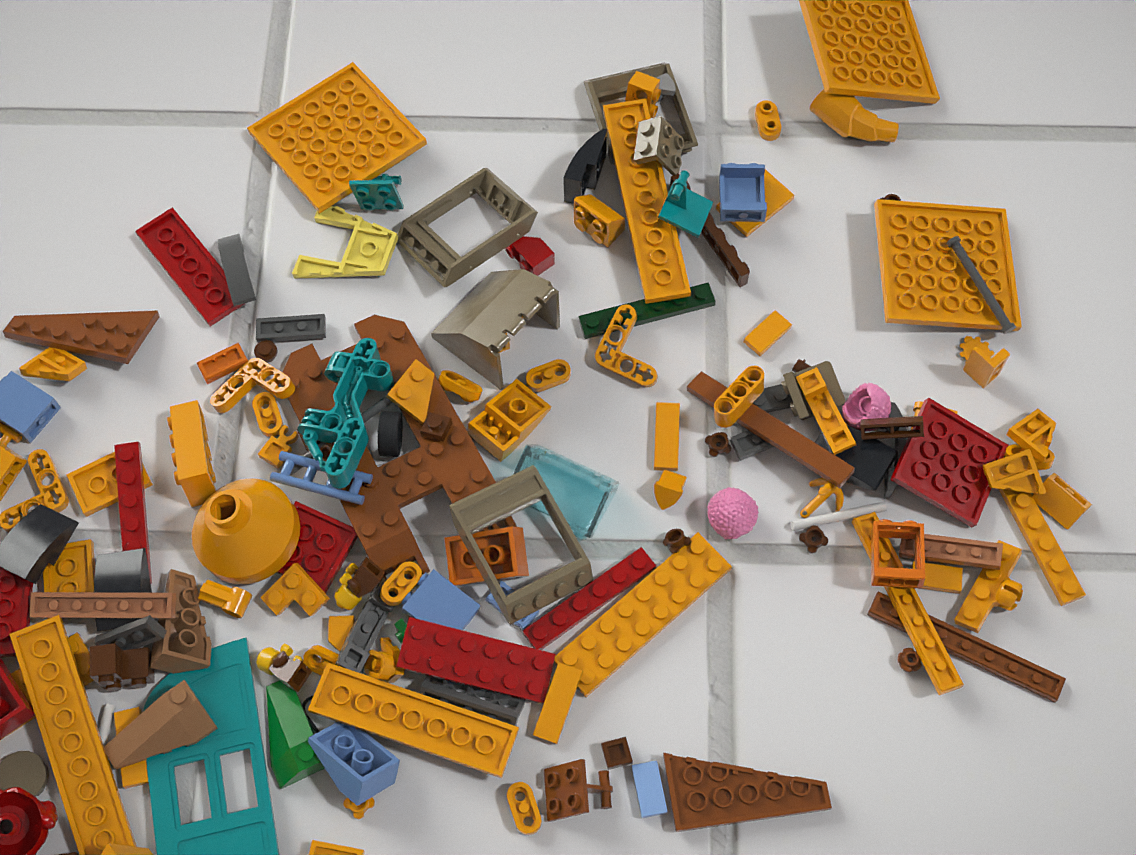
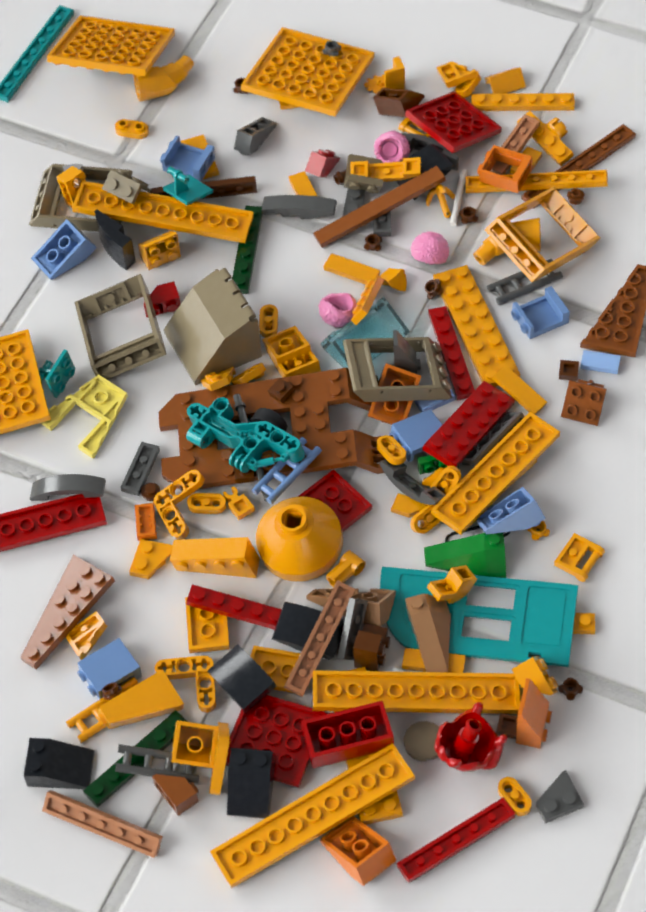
camera: 65 degrees left, 10 degrees down
(178, 386) = (149, 558): none -> light orange wing
(224, 727) = (454, 586): none -> light orange brick
(290, 672) = (420, 542): reddish brown piece -> none
(297, 586) = (358, 522): light orange plate -> none
(363, 582) = (377, 475): piece -> none
(413, 391) = (246, 394): light orange wing -> none
(437, 356) = (217, 380): none -> light orange wing
(524, 809) = (584, 433): light orange plate -> none
(542, 544) = (404, 354): none -> dark grey slope
(557, 128) = (63, 250): none -> medium blue slope
(589, 442) = (337, 309): none -> bright pink hair
(601, 467) = (367, 299): none -> light orange plate
(617, 356) = (276, 275): light orange beam -> none
(691, 684) = (541, 314): none -> medium blue panel
(731, 335) = (300, 205): none -> dark grey slope
(741, 662) = (520, 290): none -> dark grey bar
(749, 386) = (349, 211): light orange beam -> none
(766, 618) = (523, 252): none -> light orange window
(794, 607) = (530, 230): none -> light orange piece
(811, 338) = (321, 162): none -> slope
(818, 247) = (253, 135): none -> dark grey slope
(892, 423) = (425, 117): reddish brown piece -> none
(952, 383) = (396, 101): none -> reddish brown slope
(995, 270) = (331, 48): none -> dark grey plate
(1006, 325) = (335, 57): dark grey bar -> none
(1015, 473) = (478, 91): light orange wing -> none

